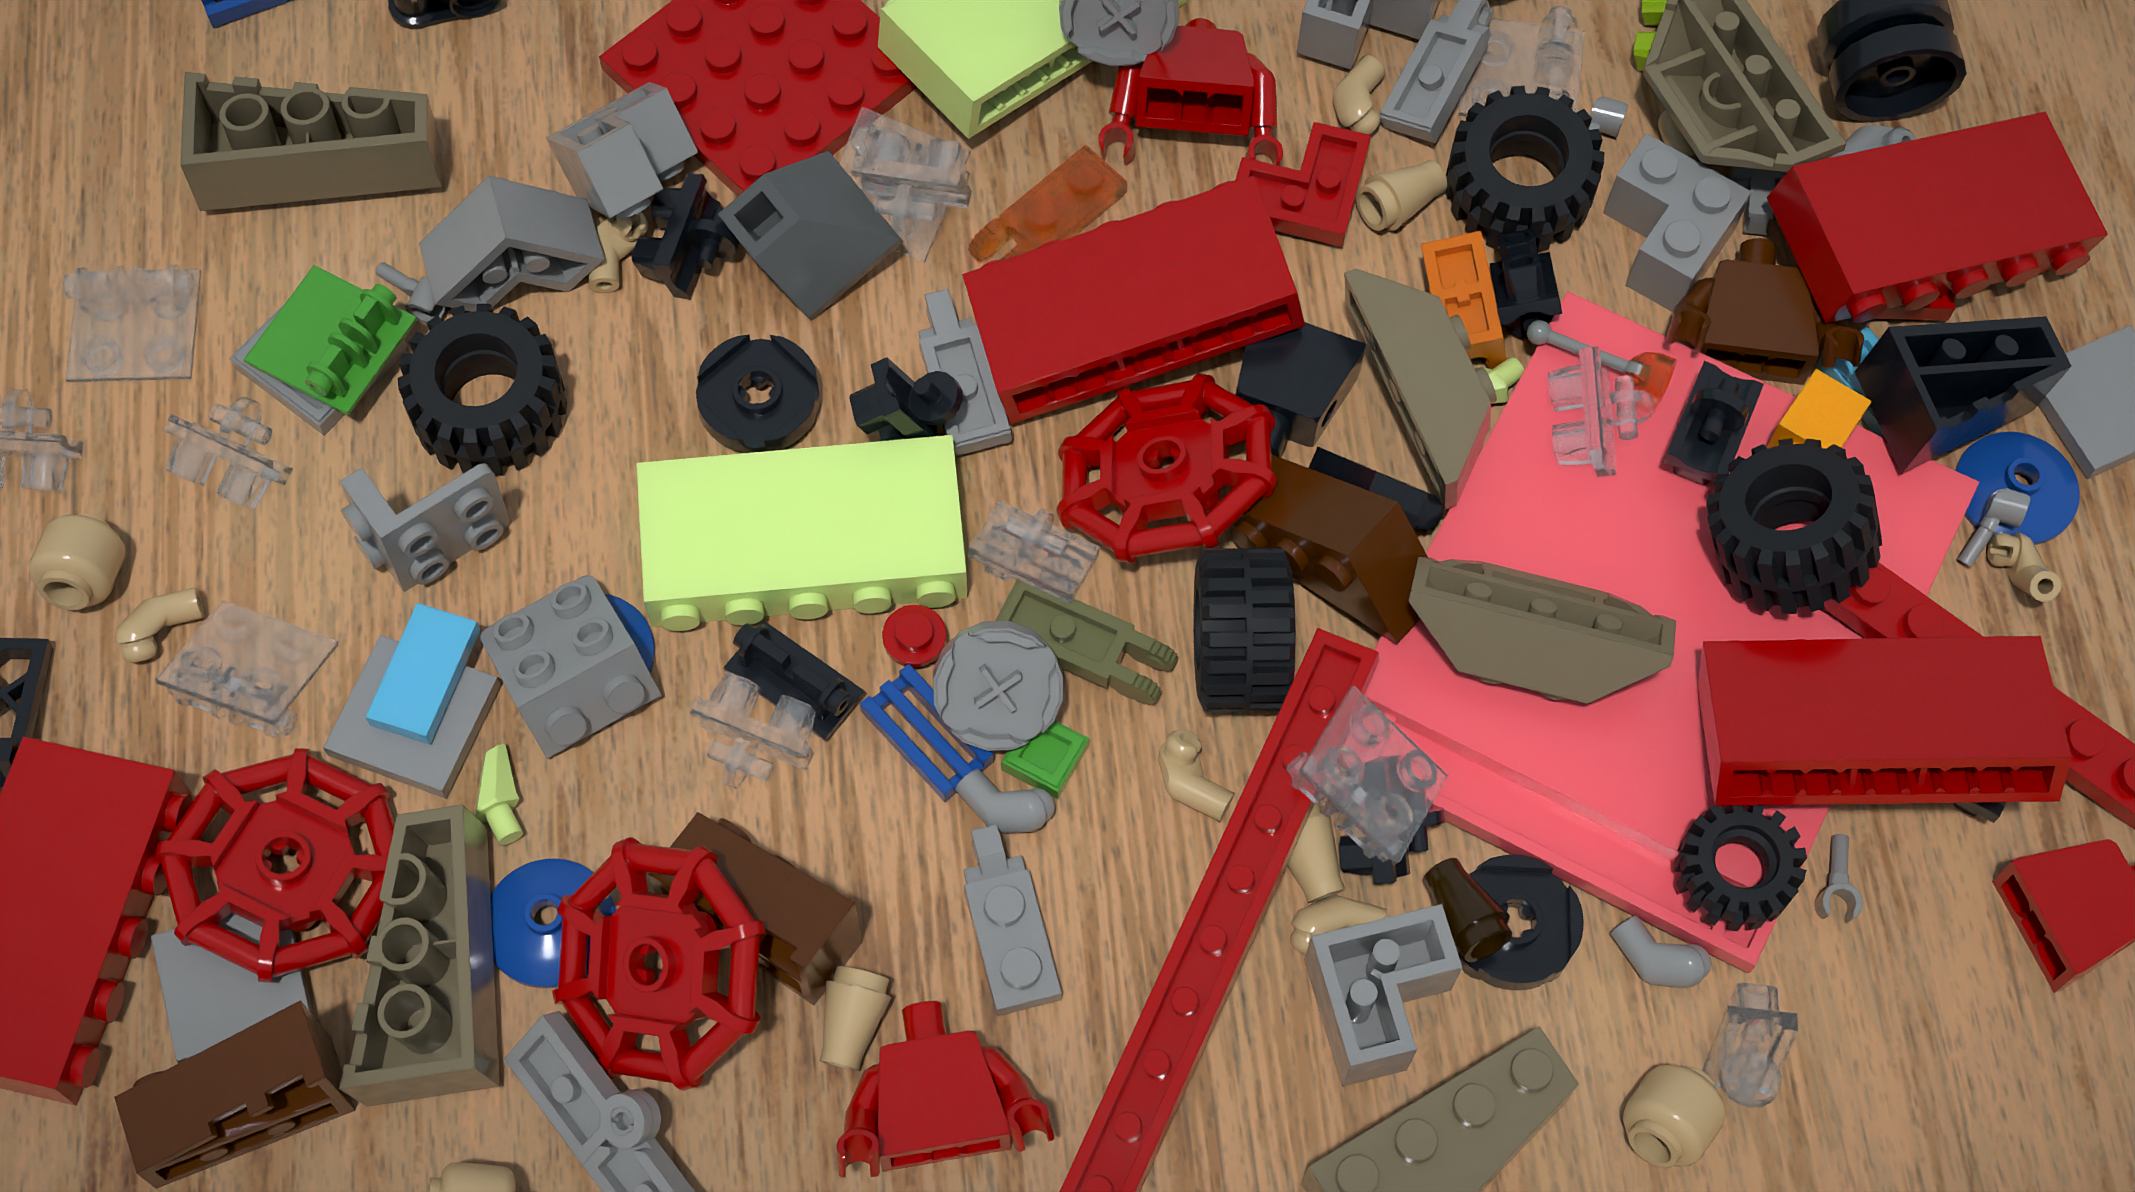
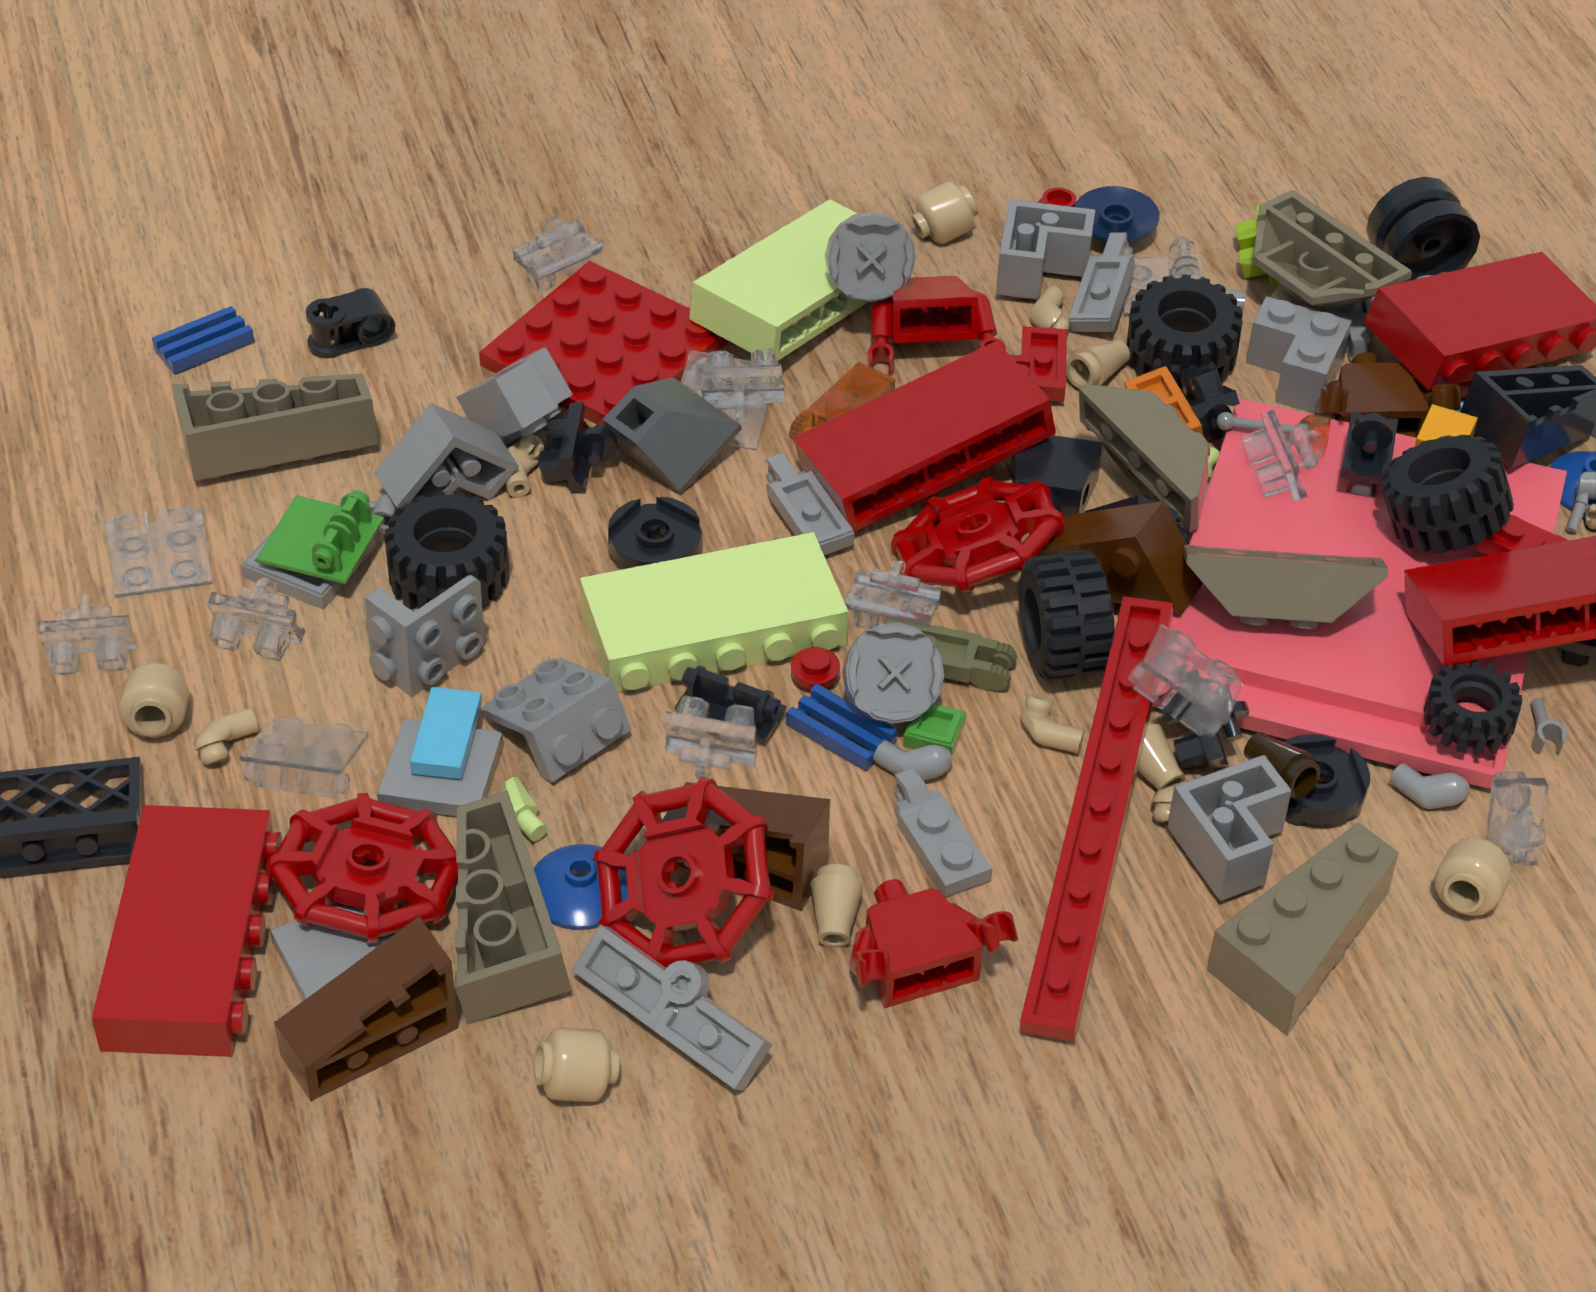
camera: 10 degrees left, 20 degrees down
(905, 407) = (791, 513): black hips -> none

